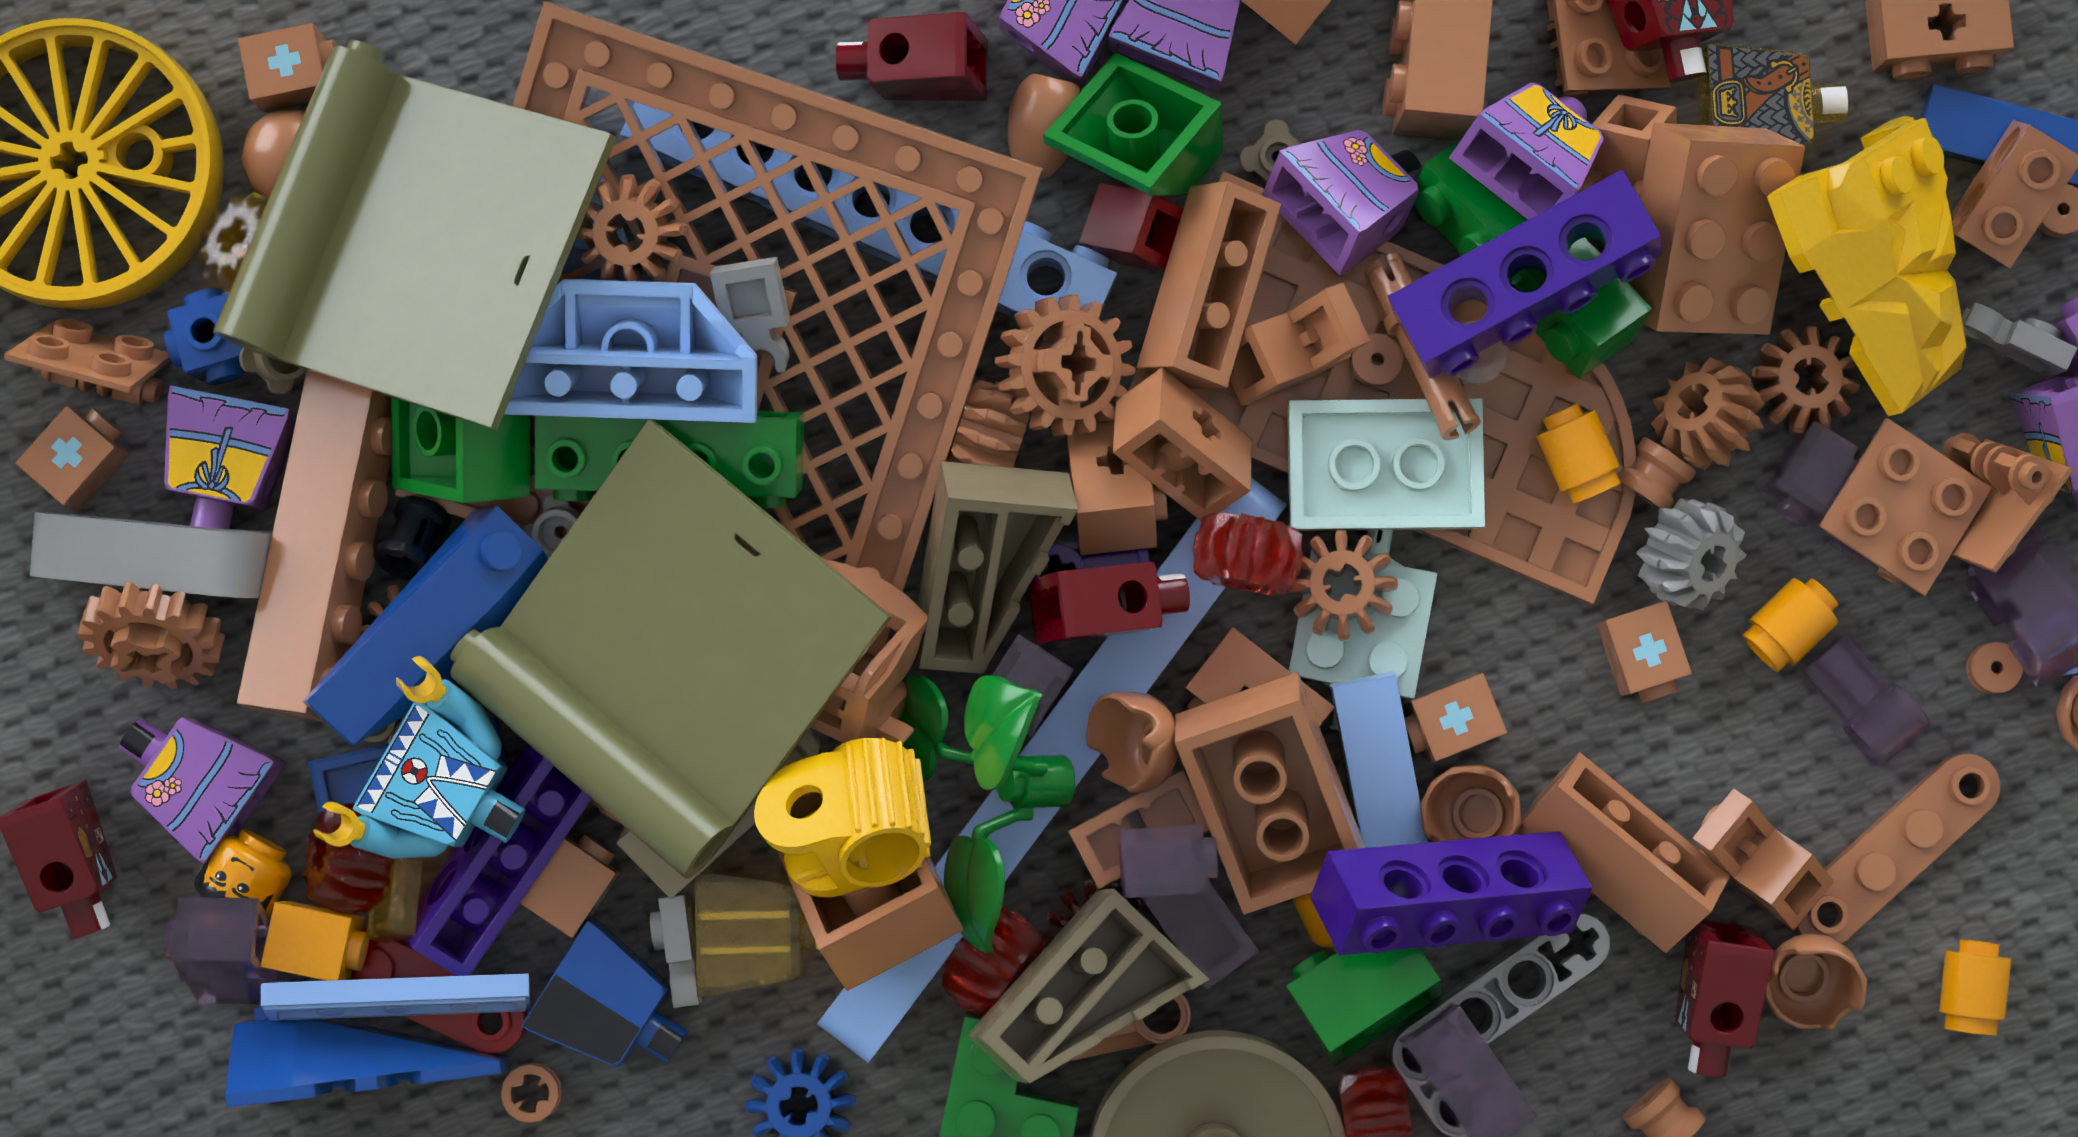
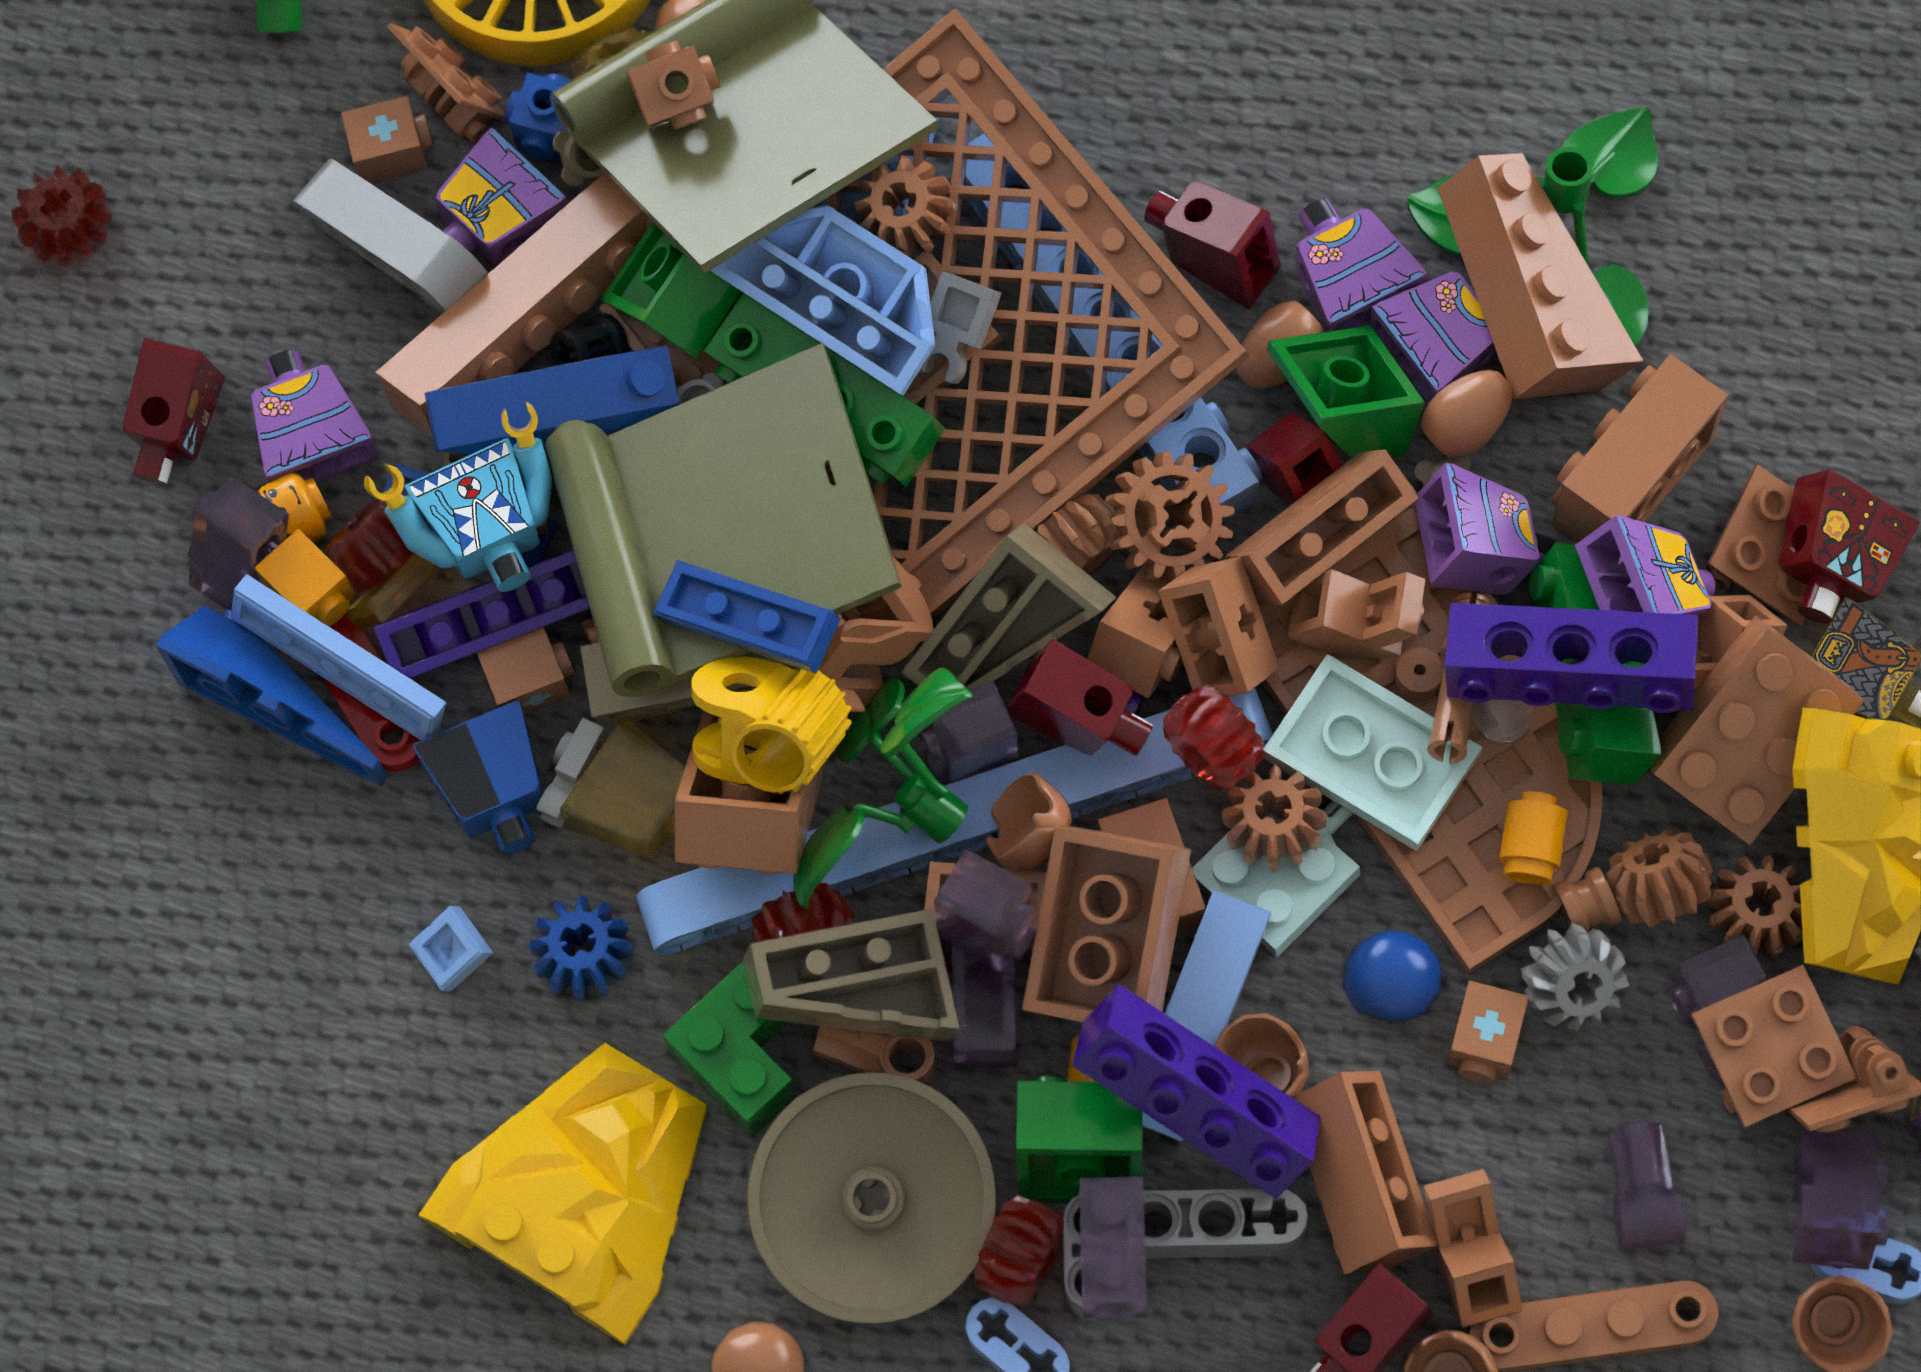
camera: 40 degrees right, 15 degrees down
(151, 635) = (348, 292): nougat gear -> none
(333, 279) = (657, 102): none -> nougat brick
(518, 1078) = (383, 793): nougat bush -> none
(764, 734) = (746, 616): none -> blue tile
(1260, 83) = (1467, 412): none -> nougat animal
(1453, 719) = (1296, 985): nougat brick -> none
(1526, 651) = (1392, 976): none -> blue hair
(1791, 623) = (1623, 1088): light orange brick -> none
(1980, 673) = (1764, 1247): nougat piece -> none

